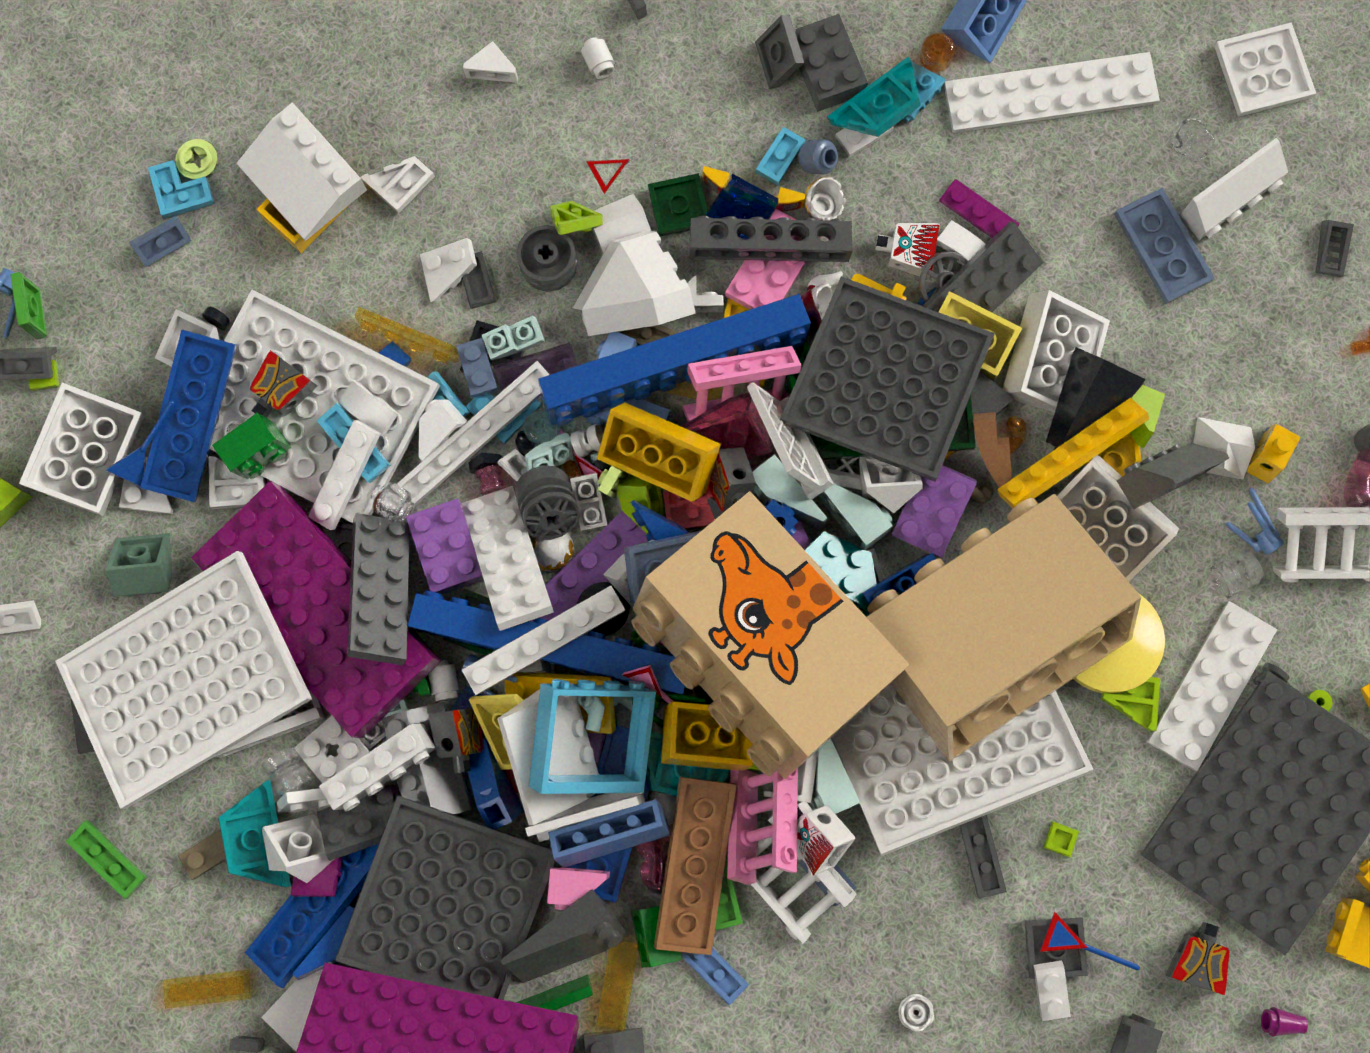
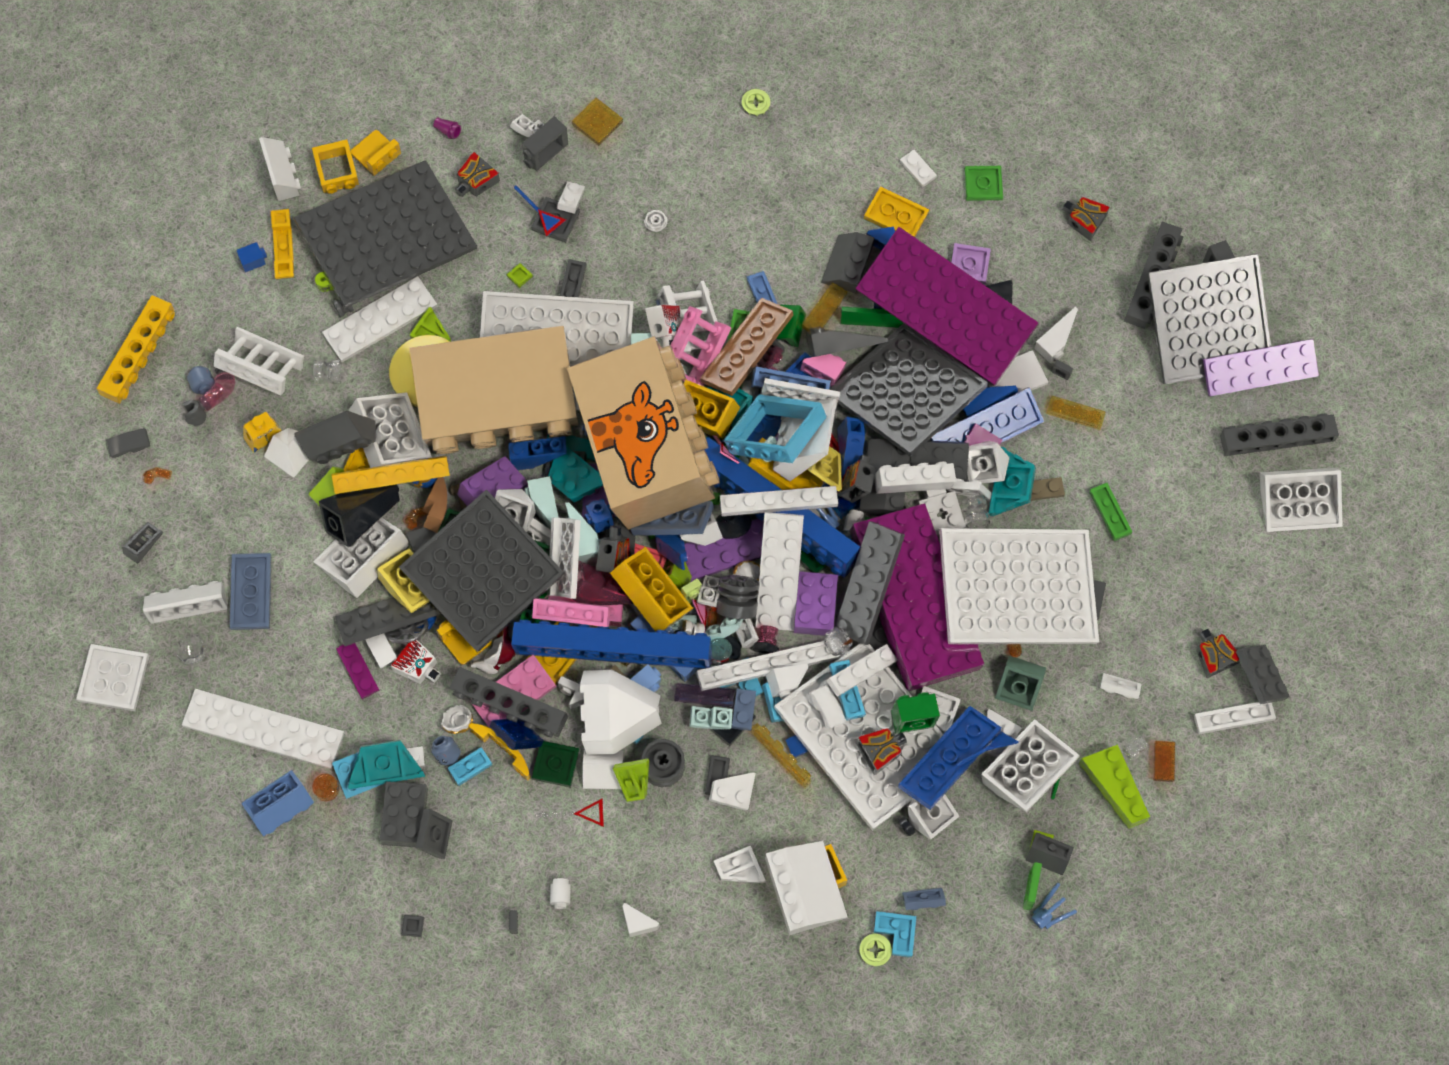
camera: 160 degrees left, 10 degrees down
(1268, 538) = (296, 386): medium blue plant -> none

